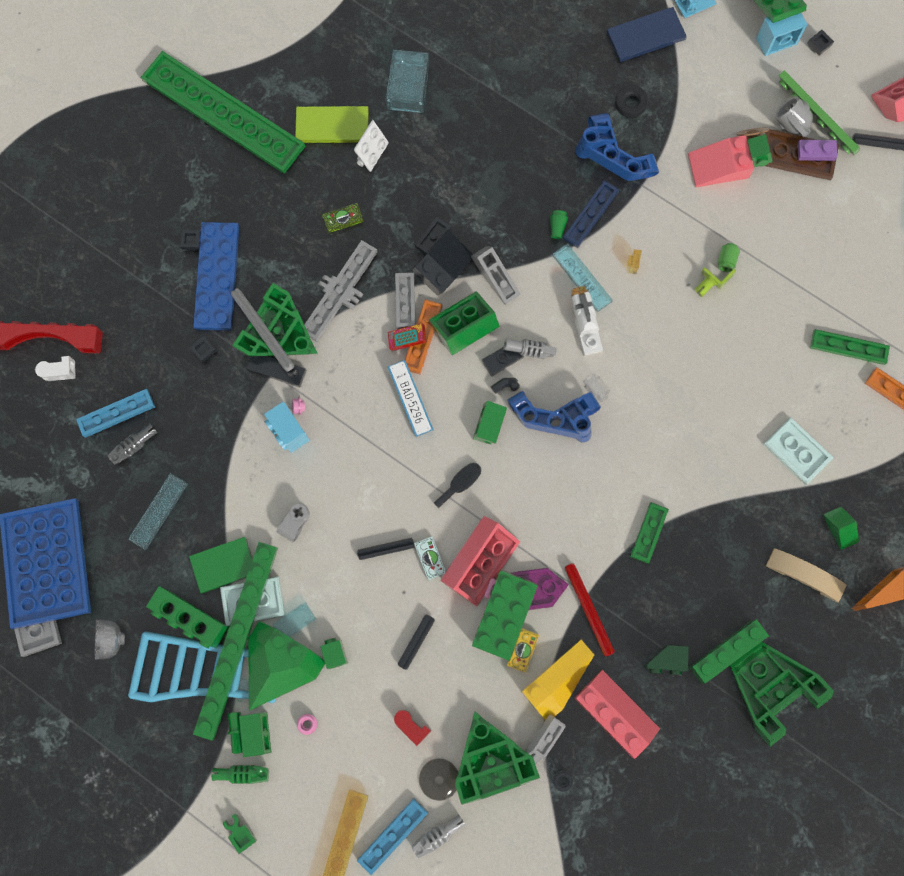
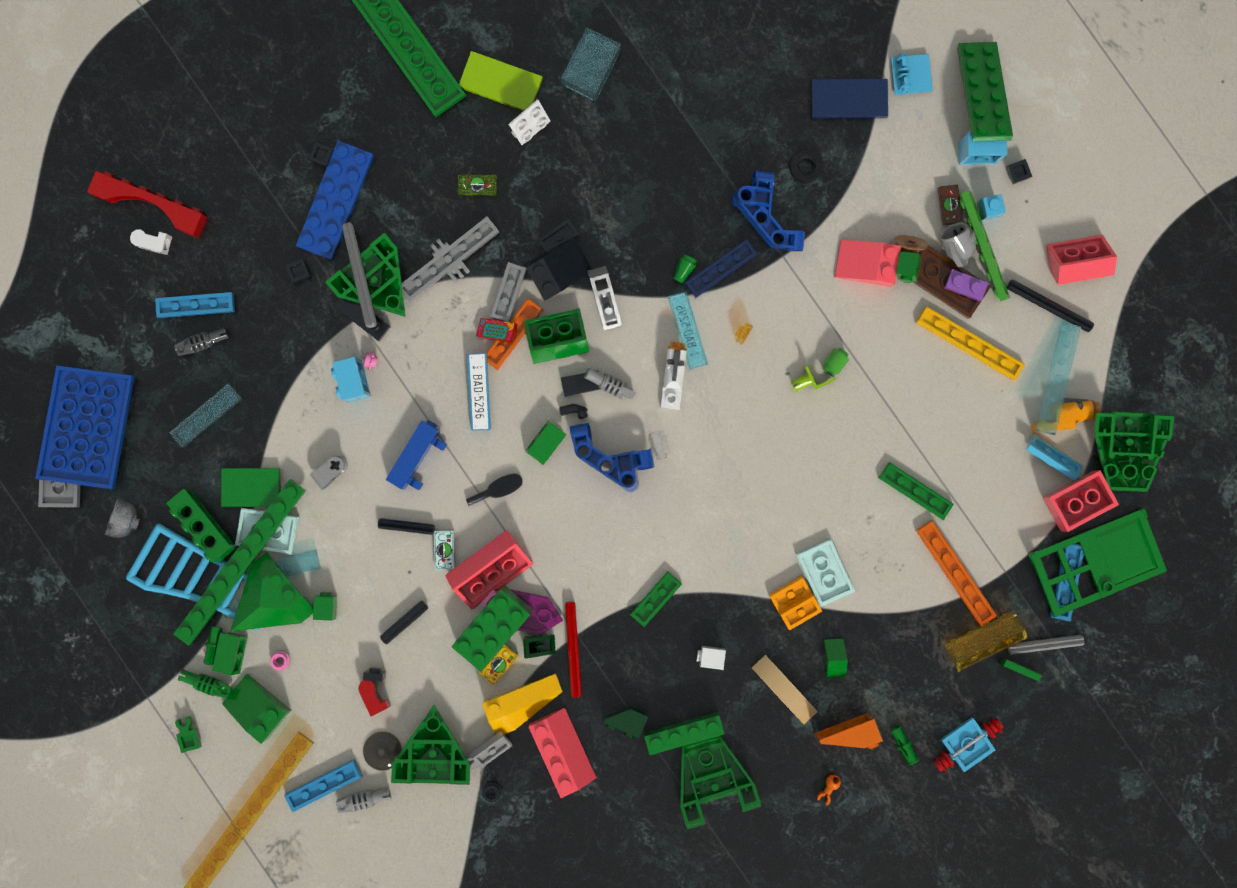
camera: 15 degrees right, 10 degrees up
(299, 781) = (255, 709): none -> green slope
(369, 478) = (413, 455): none -> blue brick
(405, 703) = (374, 674): none -> black plate
(555, 617) = (539, 645): none -> dark green slope
(725, 568) = (711, 657): none -> white brick
(771, 90) = (950, 204): none -> tile
(782, 489) = (795, 602): none -> light orange slope
(810, 78) = (991, 207): none -> medium azure brick
(841, 201) = (970, 343): none -> yellow tile
(890, 651) = (831, 785): none -> orange arm

